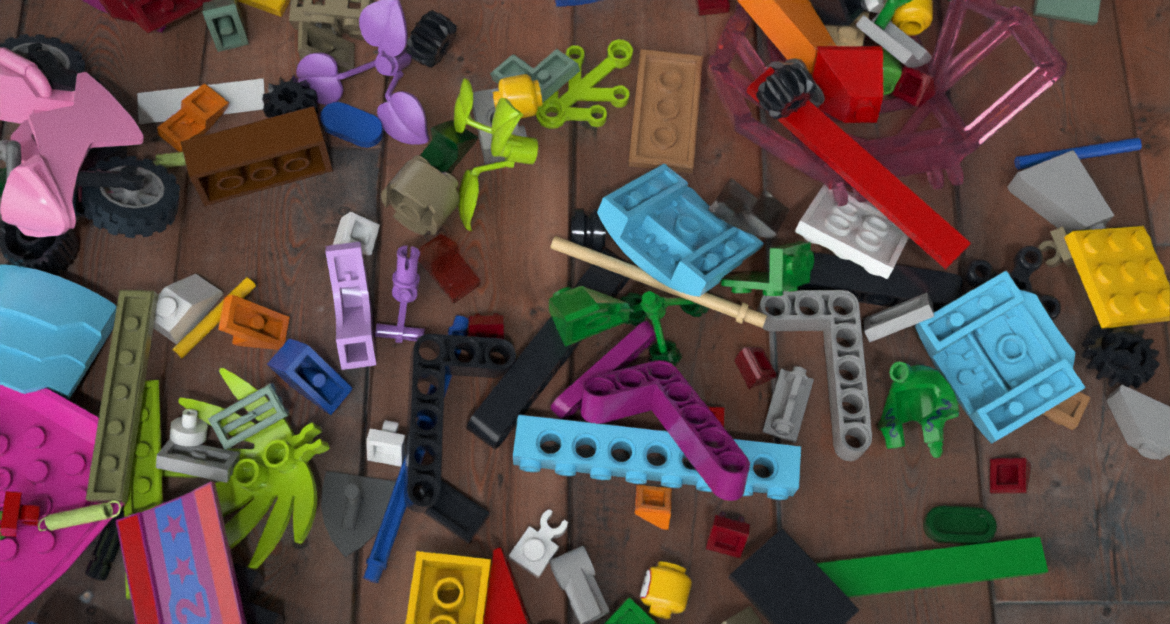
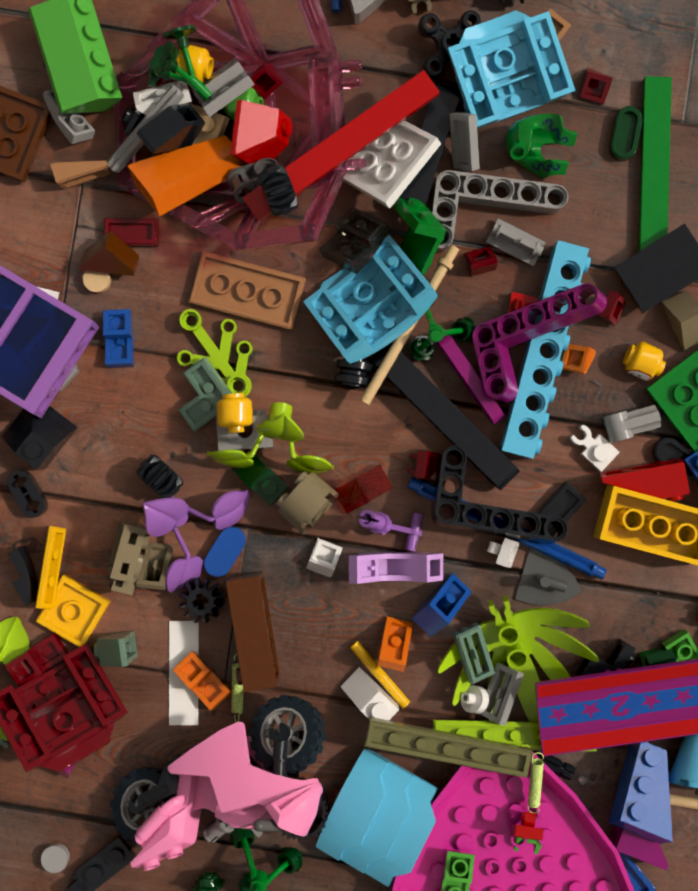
camera: 75 degrees left, 20 degrees up
(585, 312) = (433, 387): green slope -> none

